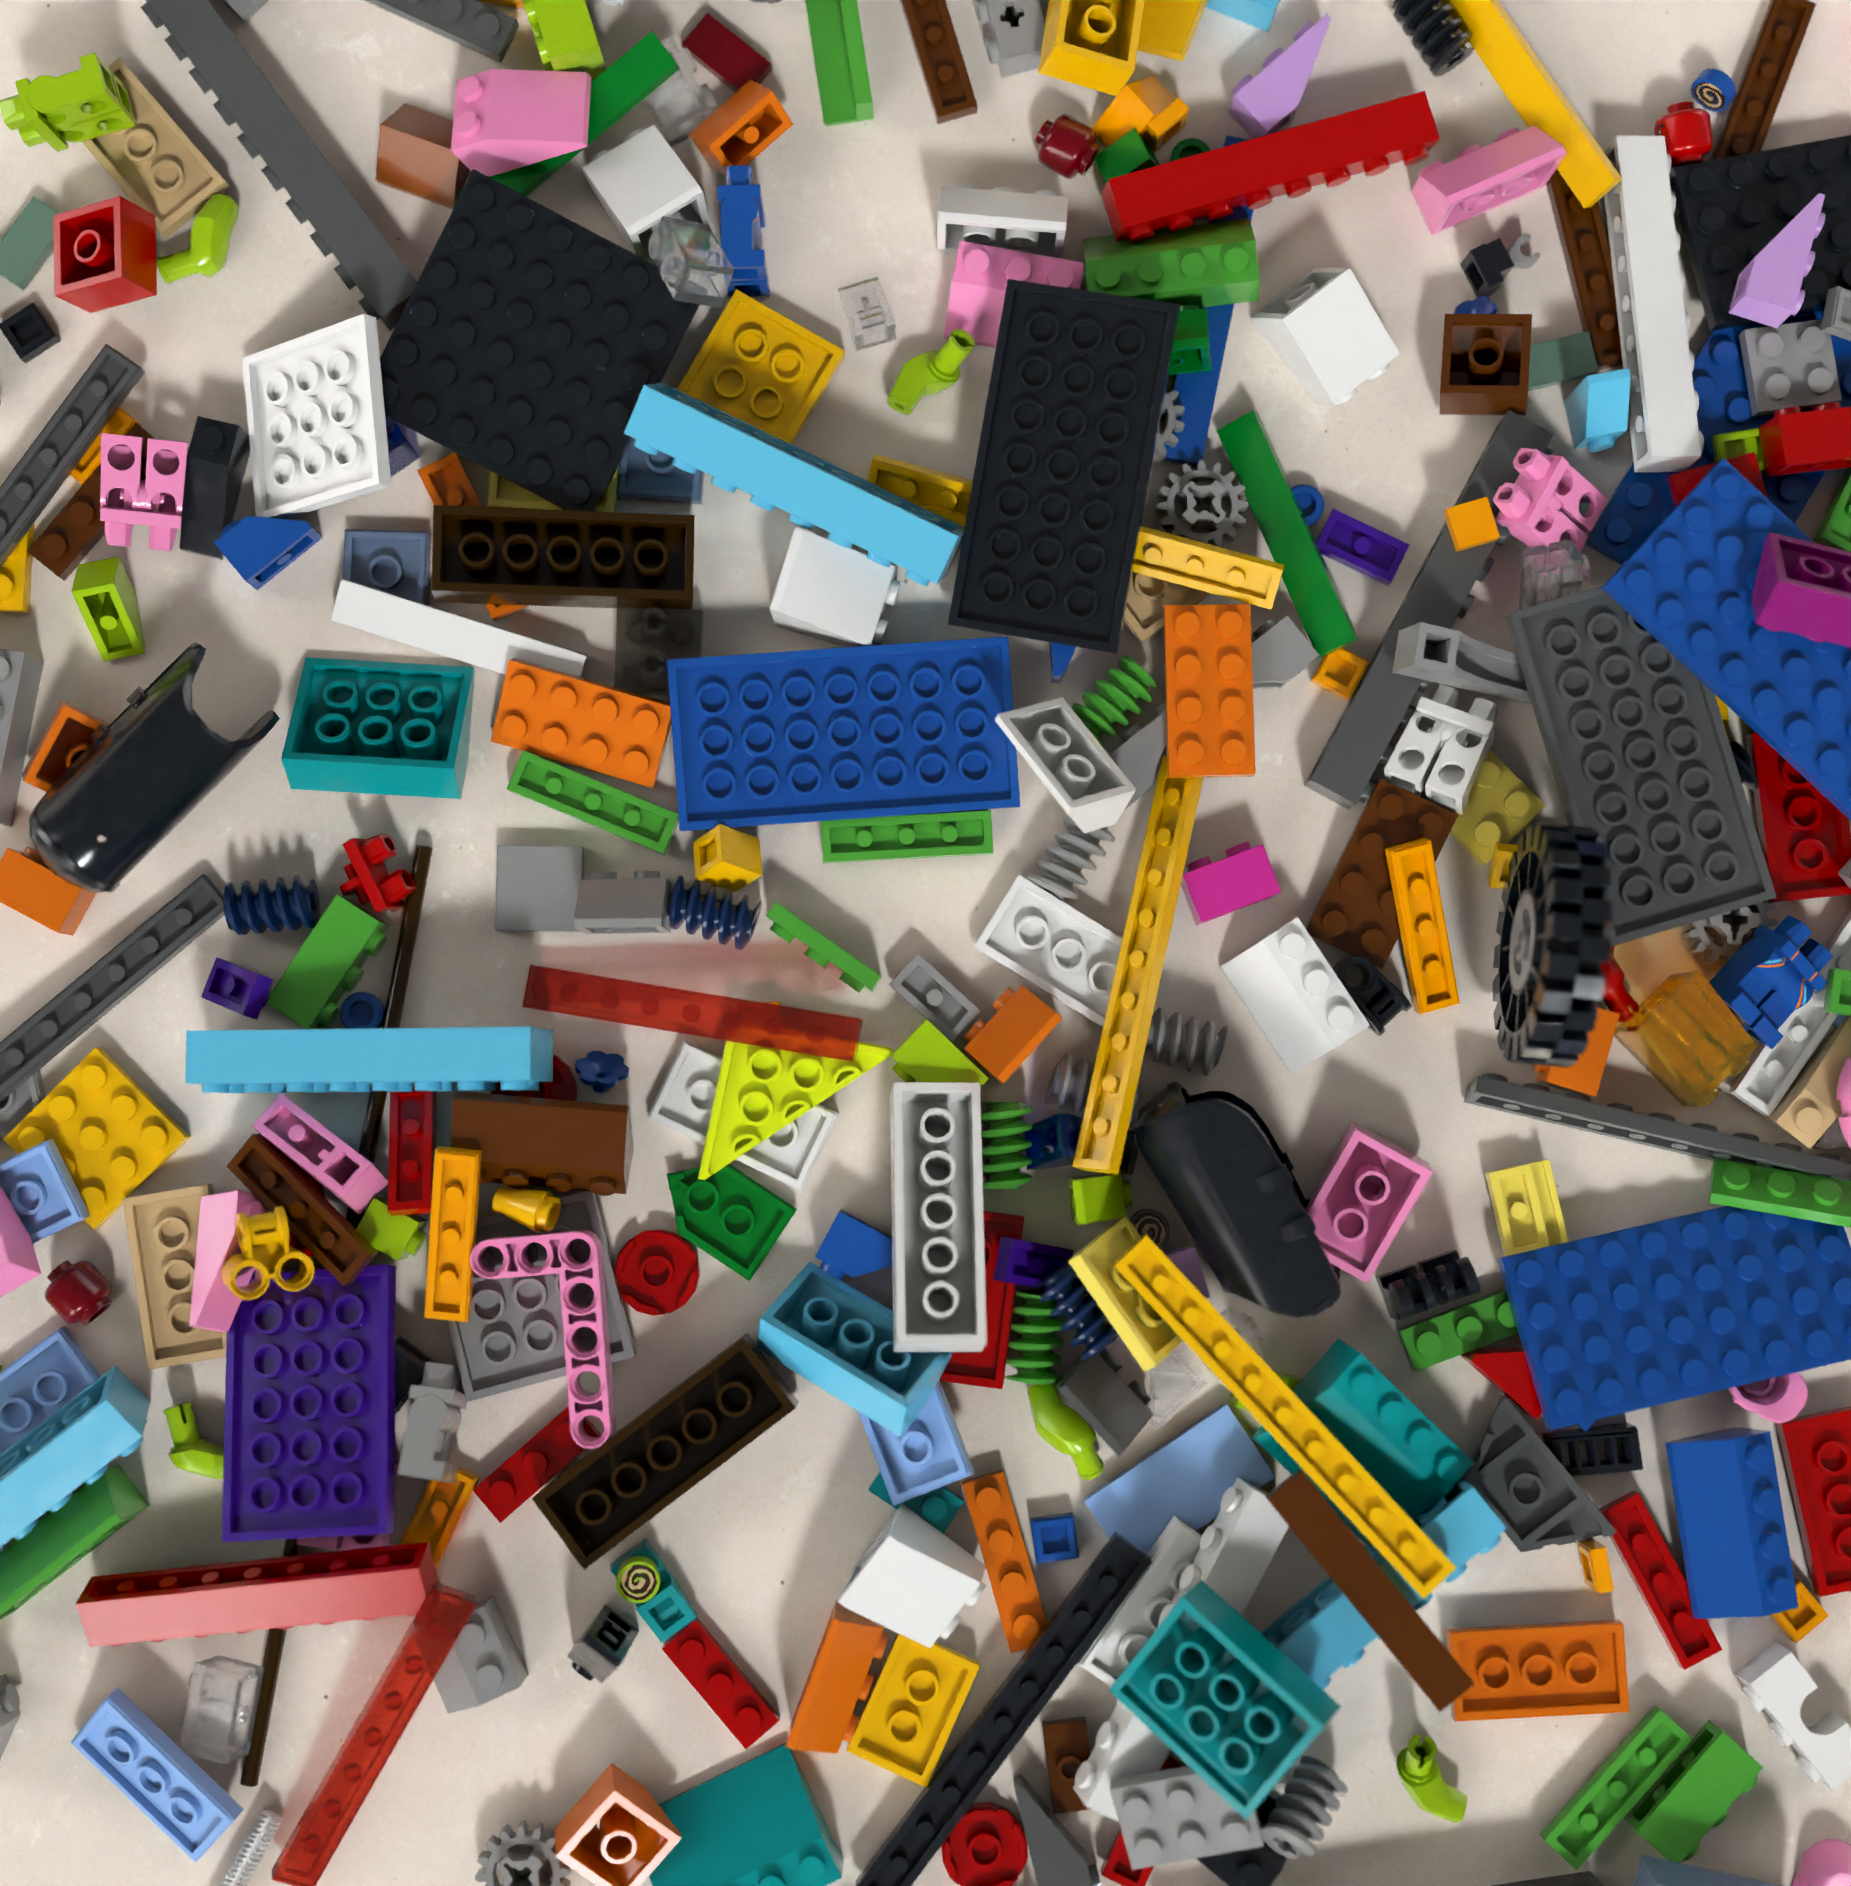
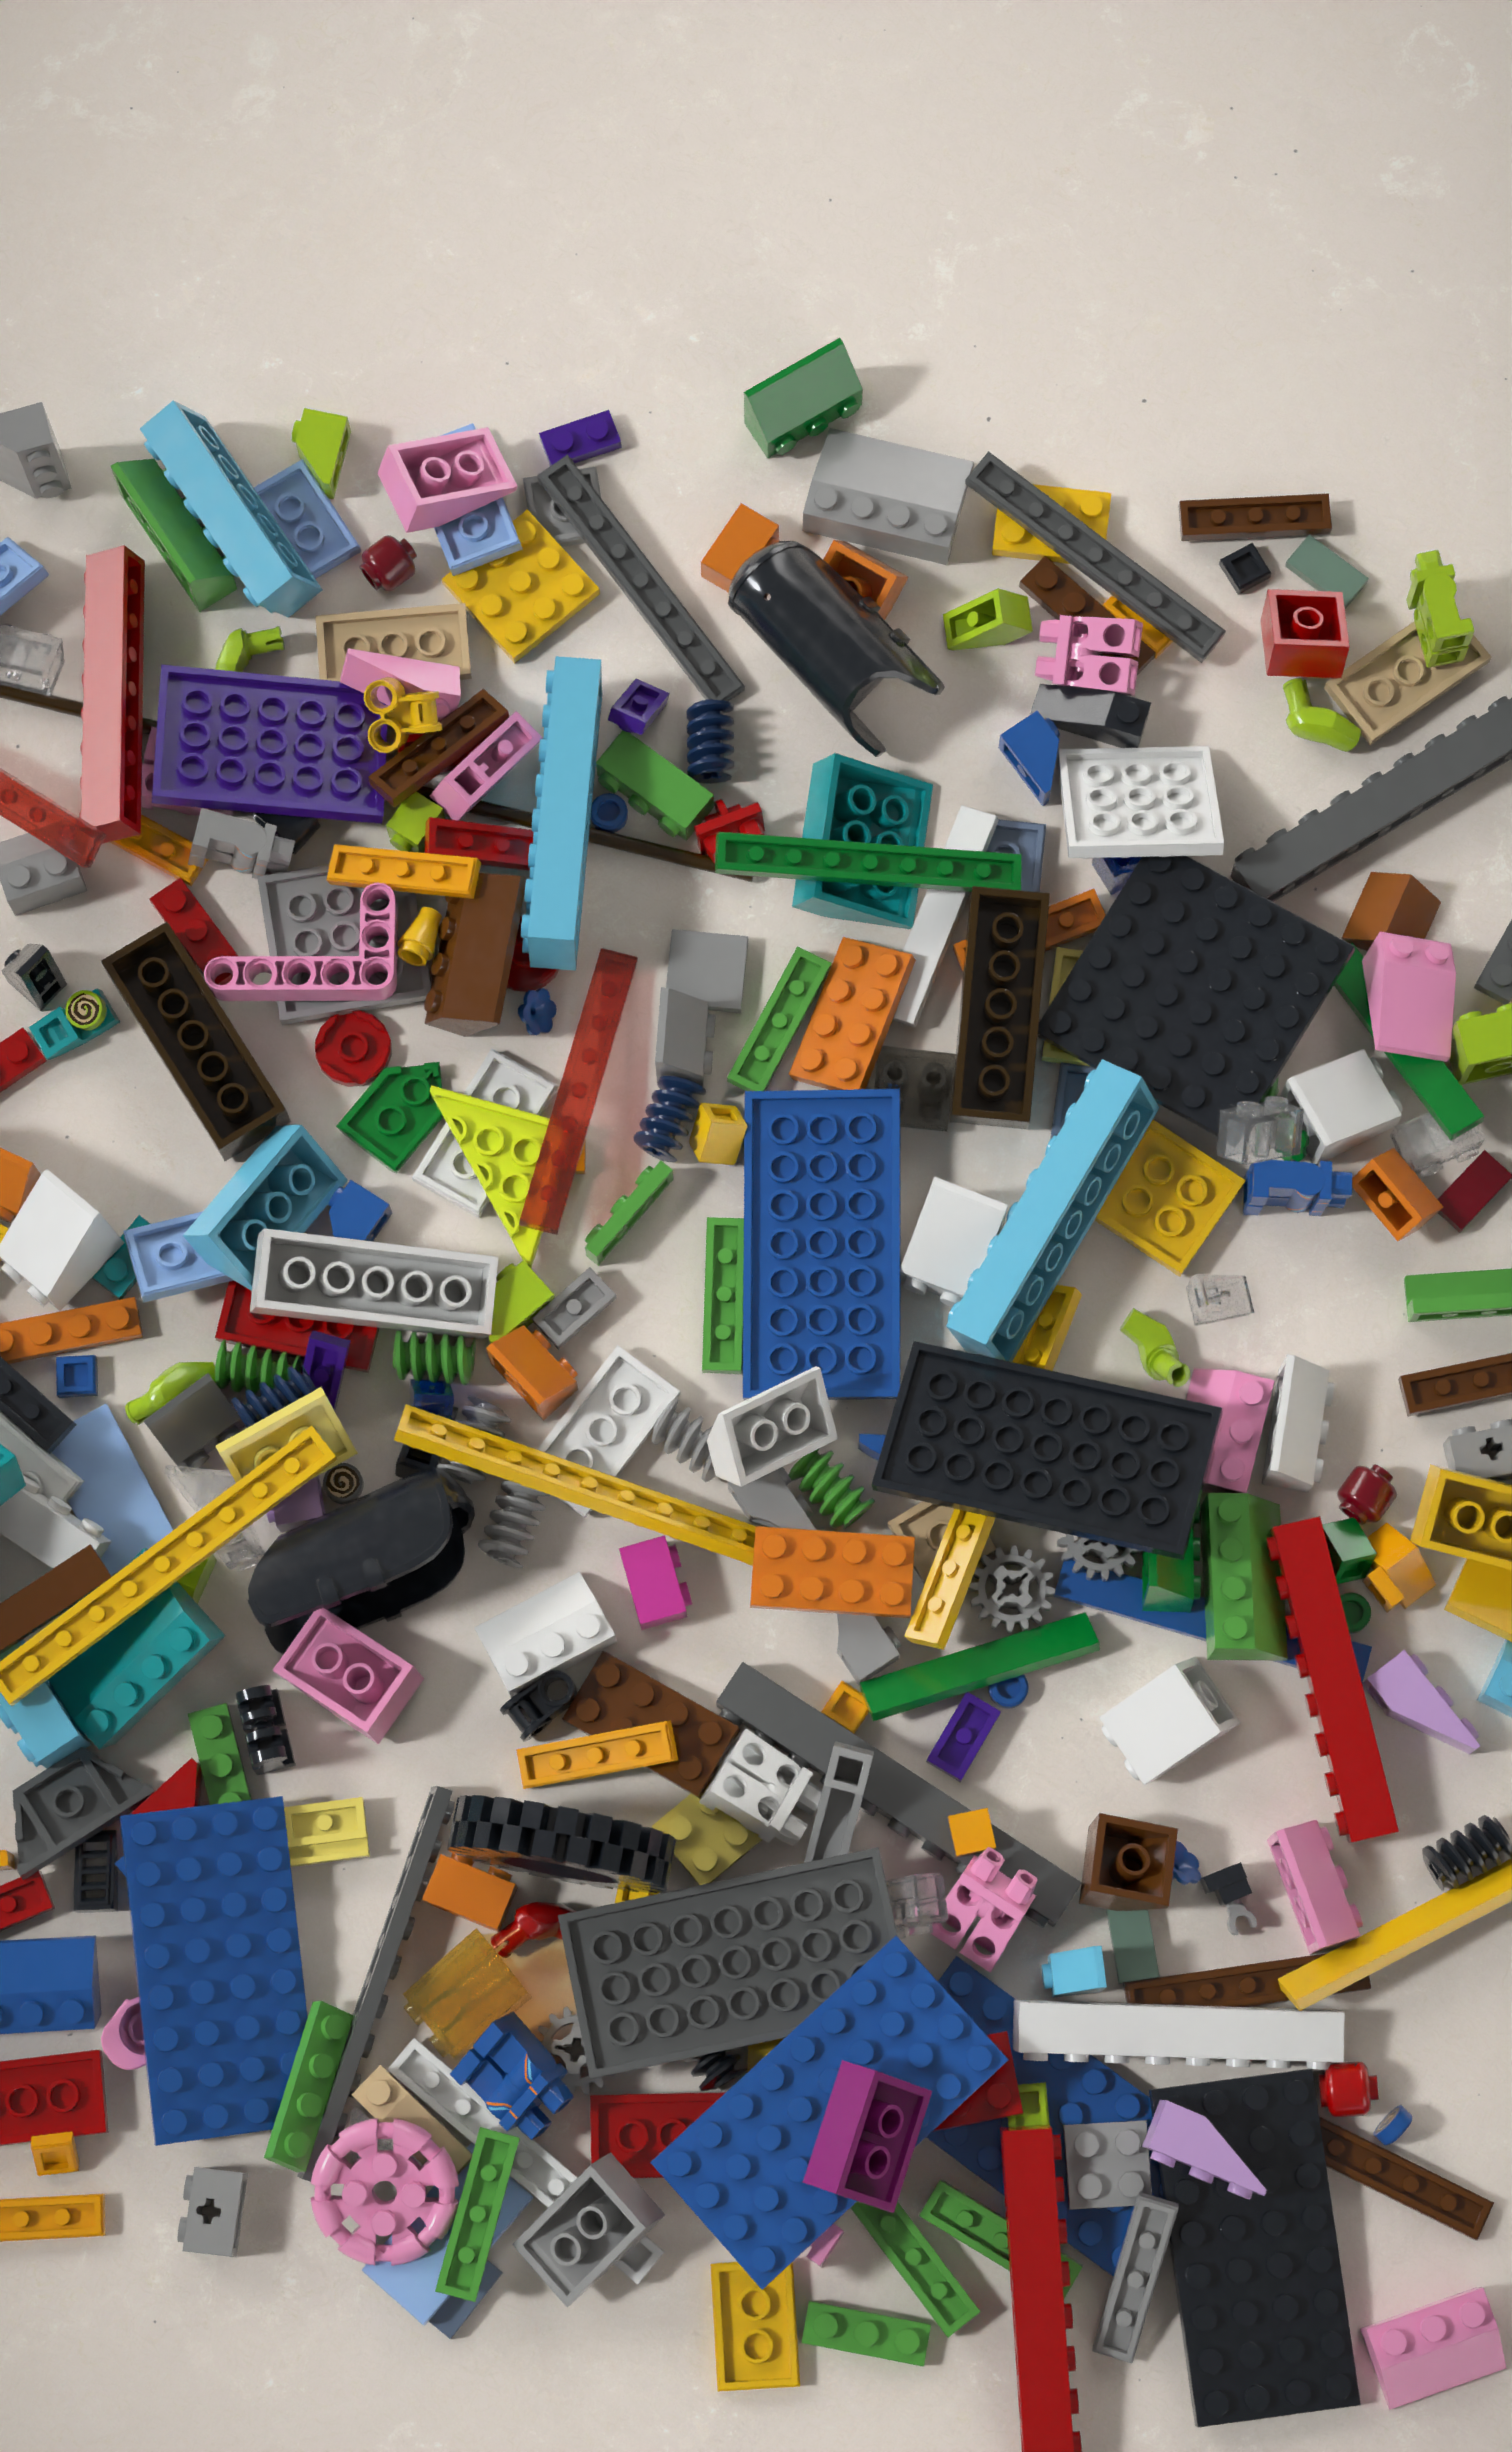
camera: 95 degrees right, 10 degrees down
(411, 712) = (865, 863): none -> green plate
(1098, 1197) = (375, 1432): lime slope -> none

